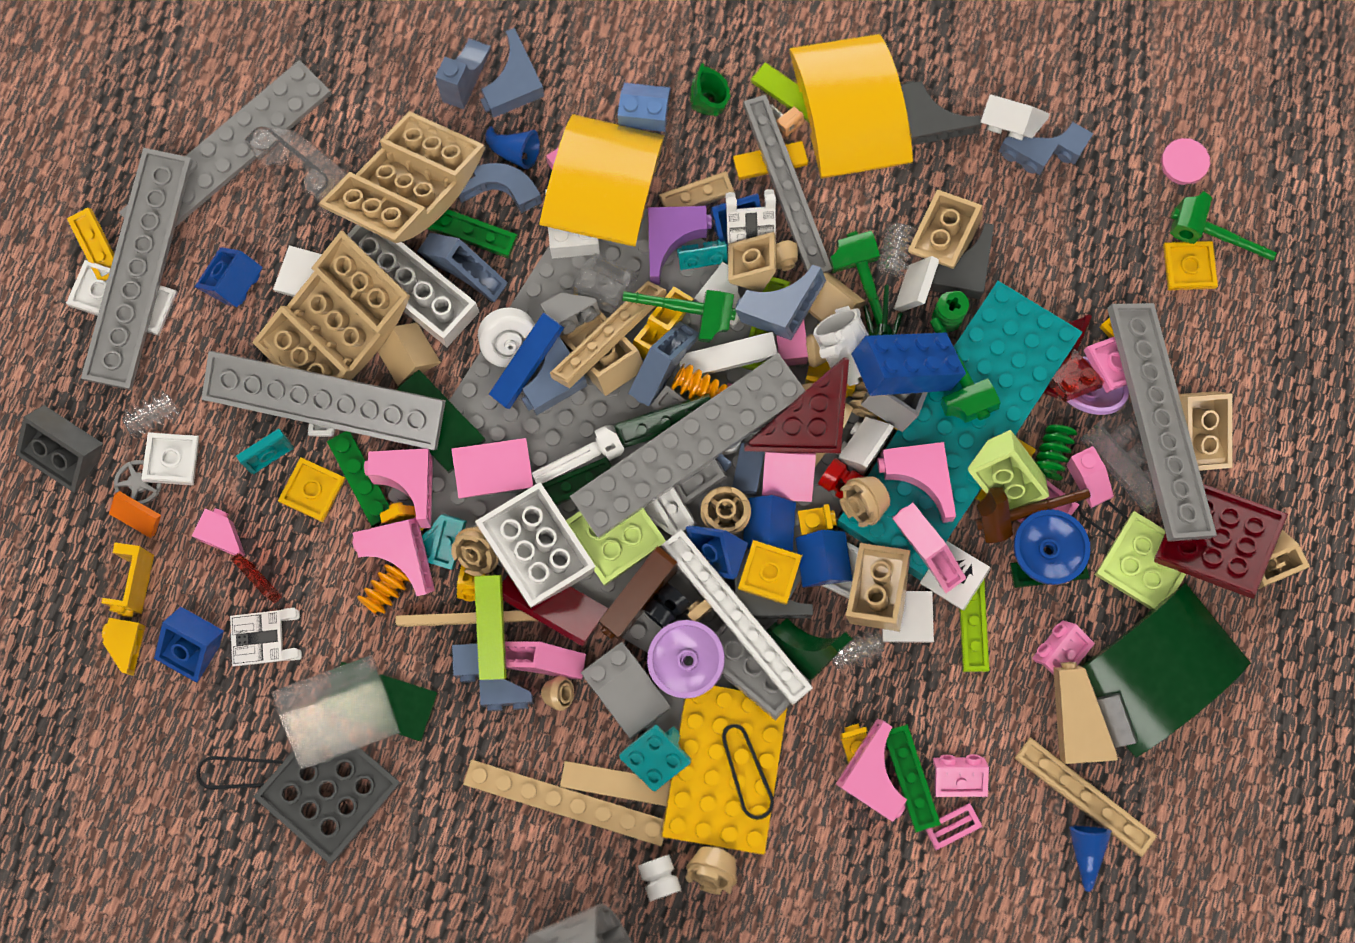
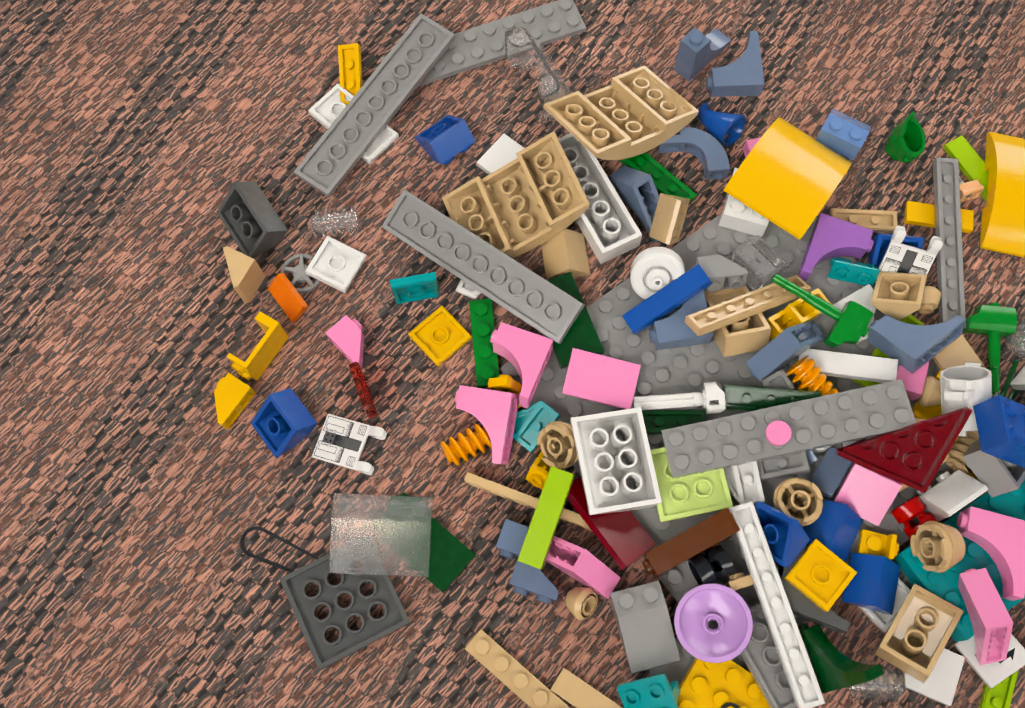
camera: 25 degrees right, 5 degrees down
(78, 508) = (244, 273): none -> tan slope
(498, 273) = (669, 218): none -> tan slope
(680, 454) = (778, 433): none -> bright pink tile

